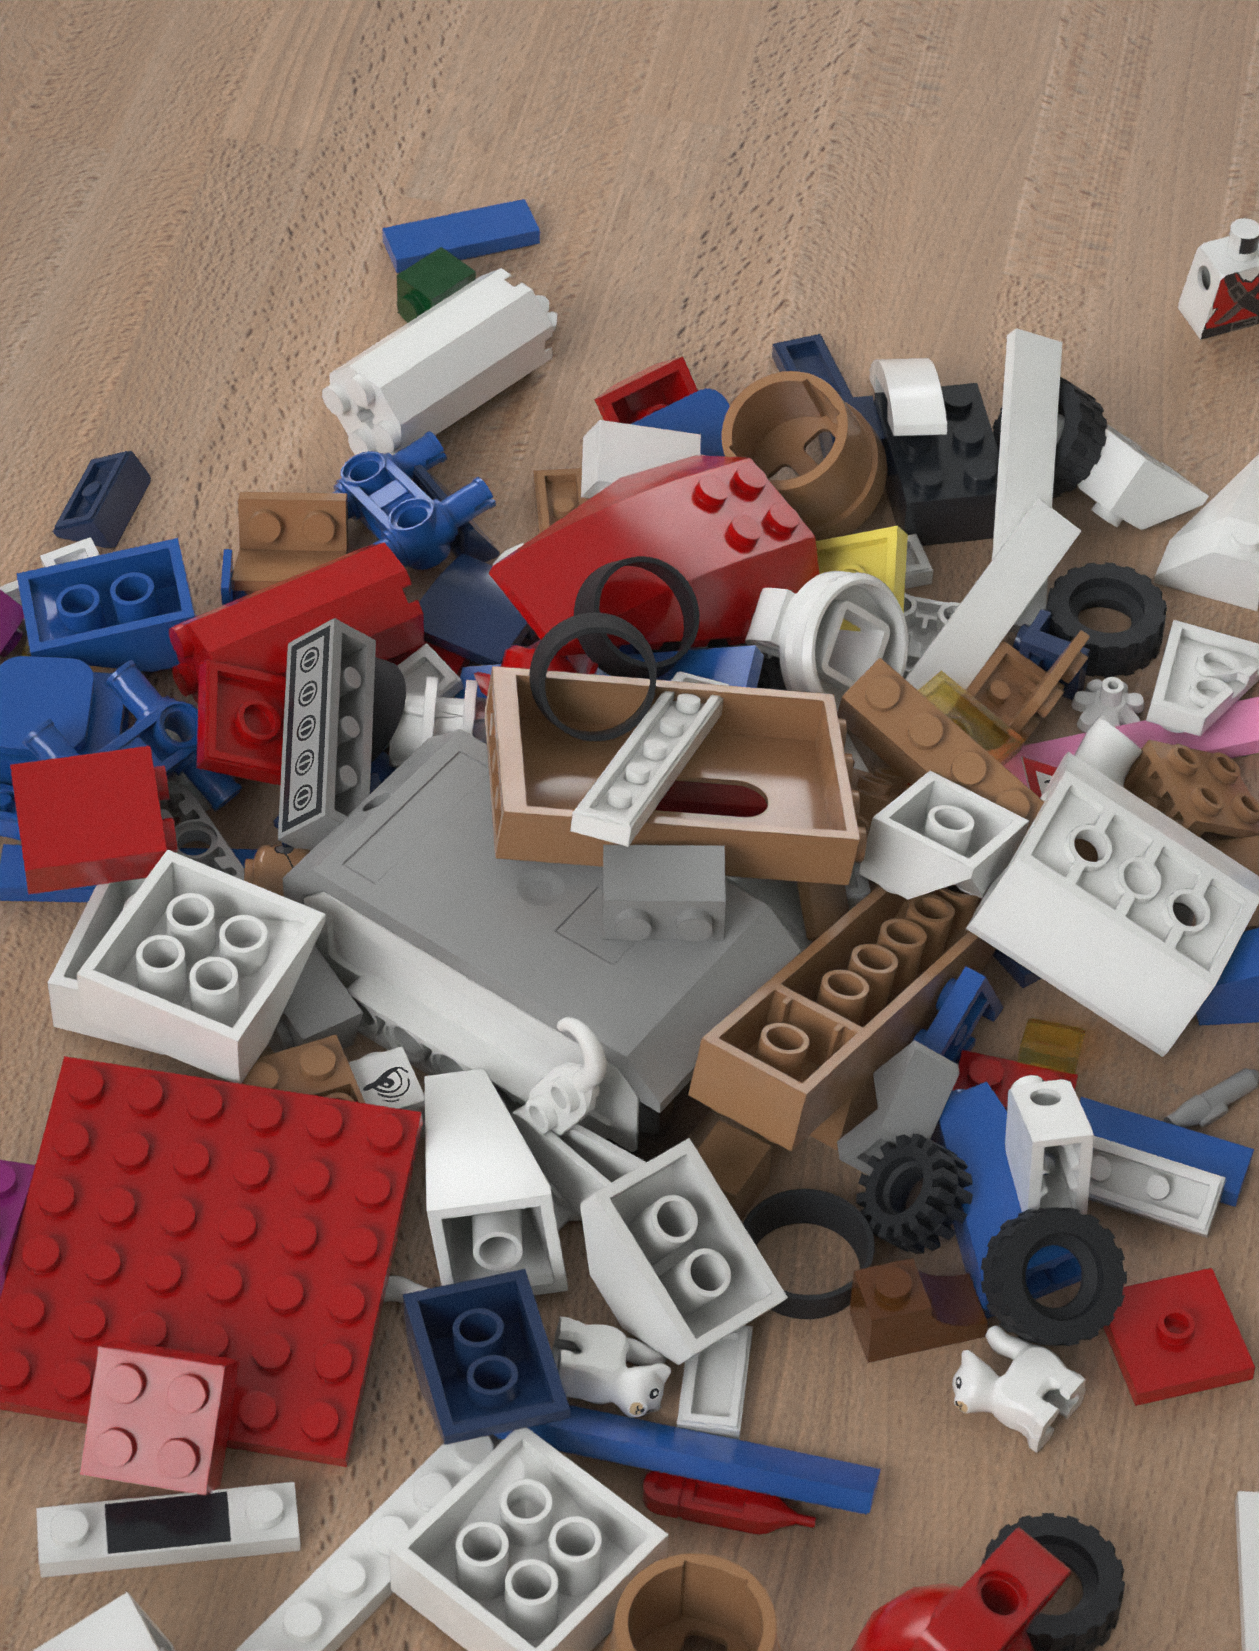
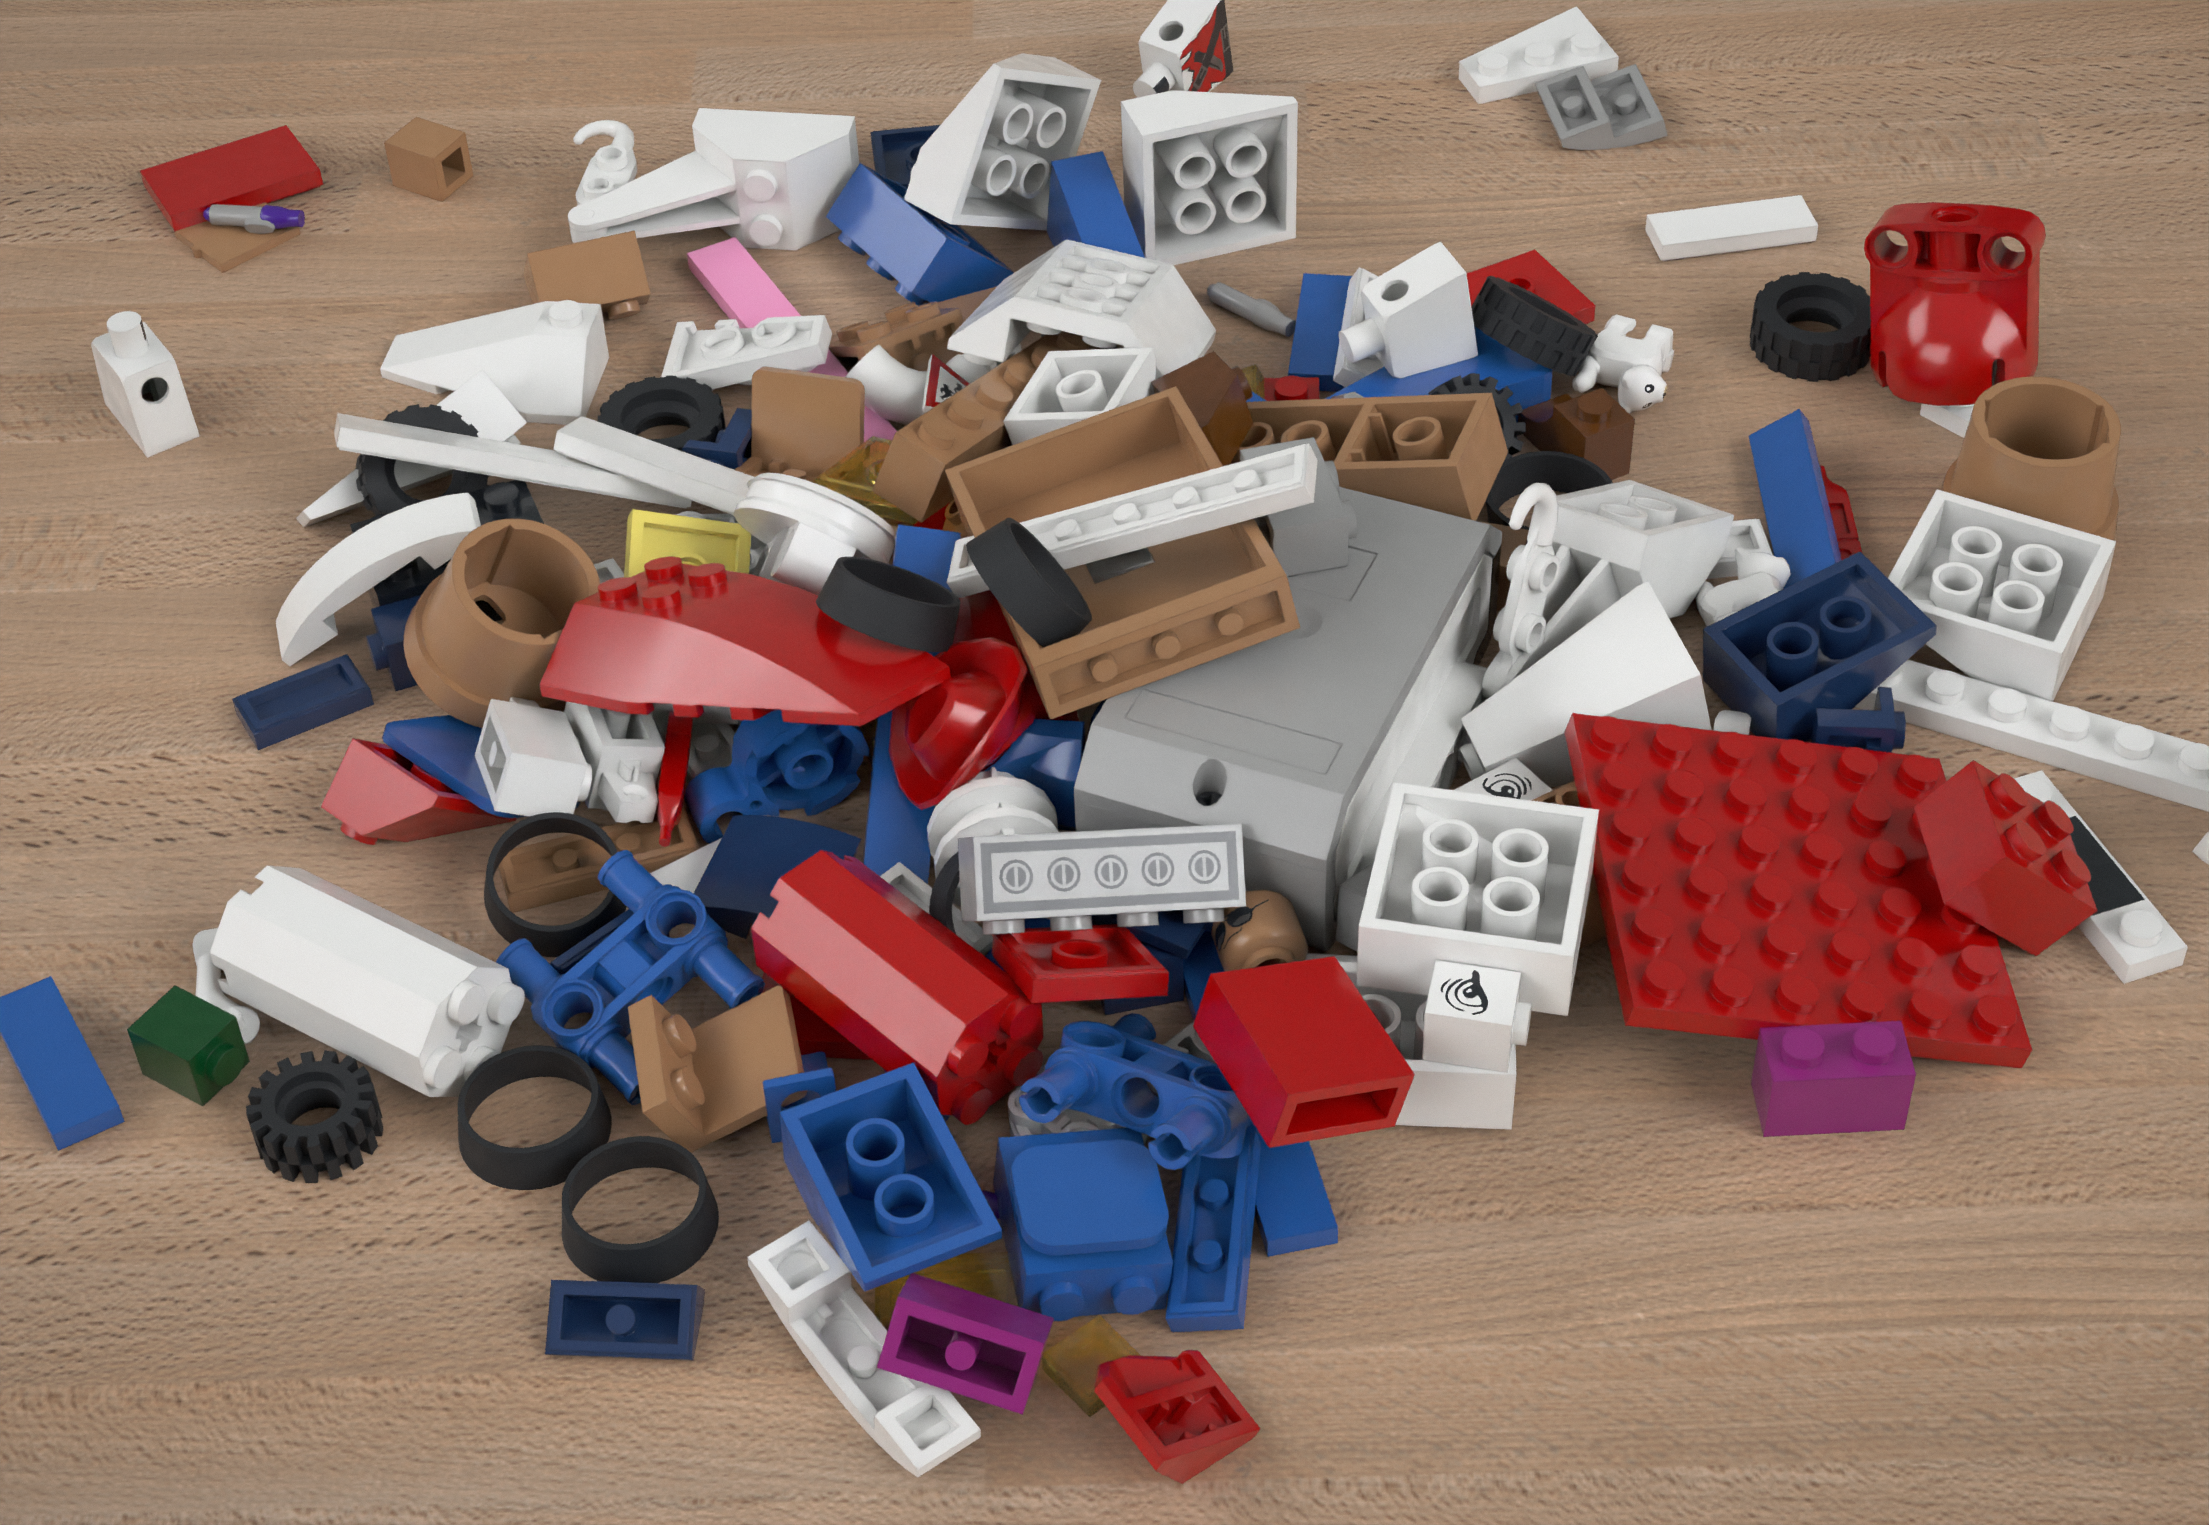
camera: 100 degrees left, 5 degrees down
(79, 934) = (1474, 1016): none -> white brick
(200, 545) = (645, 1261): none -> black tyre
(291, 430) = (542, 1164): none -> black tyre
(334, 336) = (318, 1145): none -> black tyre
(388, 1399) = (1866, 729): none -> dark blue bracket
(529, 521) = (557, 939): none -> black tyre
(896, 917) = (1216, 400): none -> reddish brown slope

